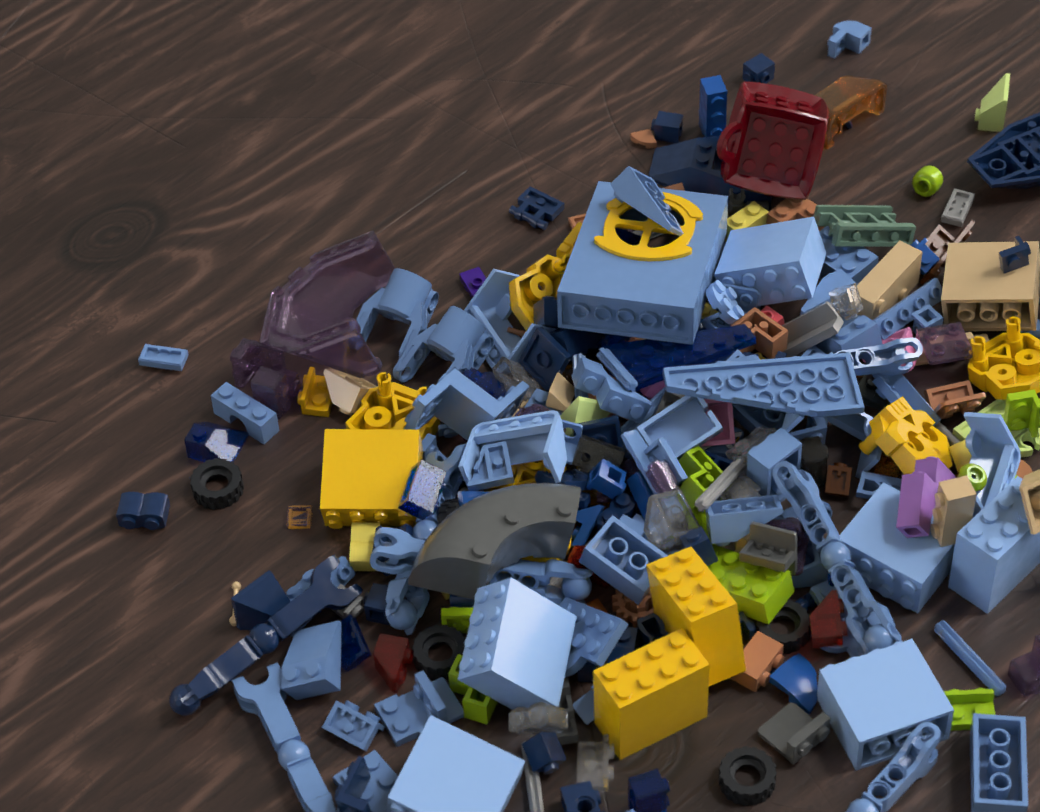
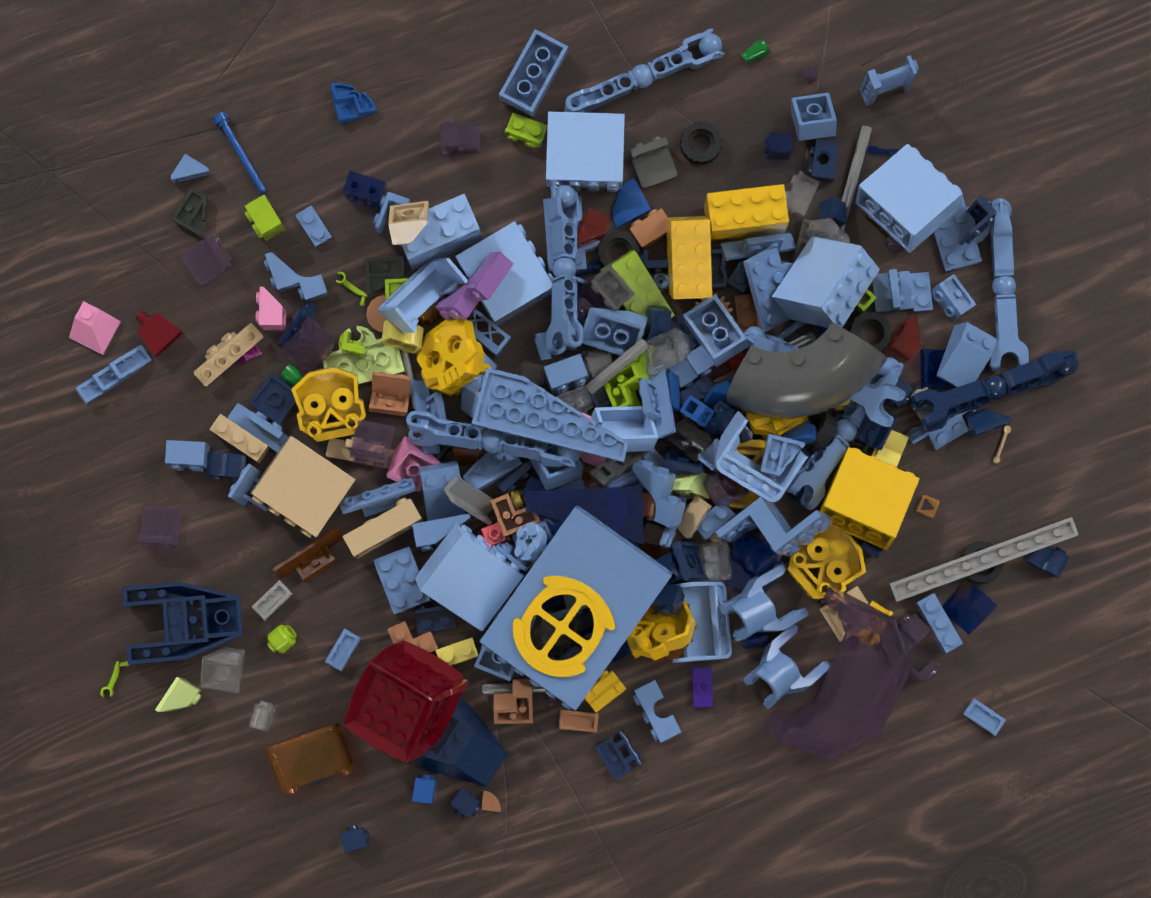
camera: 160 degrees left, 35 degrees up
(212, 474) = (984, 559): none -> light grey plate
(422, 490) = (840, 452): clear blue piece -> none
(504, 240) = (662, 727): none -> medium blue arch
(617, 369) = (645, 507): medium blue axle -> none
(646, 197) = (556, 649): medium blue wedge -> none
(661, 477) = (659, 384): clear purple brick -> none
(838, 480) = (514, 361): reddish brown bracket -> none
(846, 301) = (432, 505): clear brick -> none
(848, 35) = (250, 850): medium blue brick -> none
(861, 191) = (343, 650): none -> medium blue plate
(863, 225) = (373, 582): sand green fence -> none
(905, 115) = (262, 716): none -> clear brick
(922, 318) = (370, 478): medium blue brick -> none
(929, 258) = (336, 550): blue bracket -> none
(952, 509) = (471, 249): tan brick -> none
(965, 144) = (223, 670): none -> clear slope
(970, 658) = (501, 172): medium blue axle -> none
(977, 472) = (426, 305): lime plate -> none
(1015, 257) = (284, 477): dark blue bracket -> none

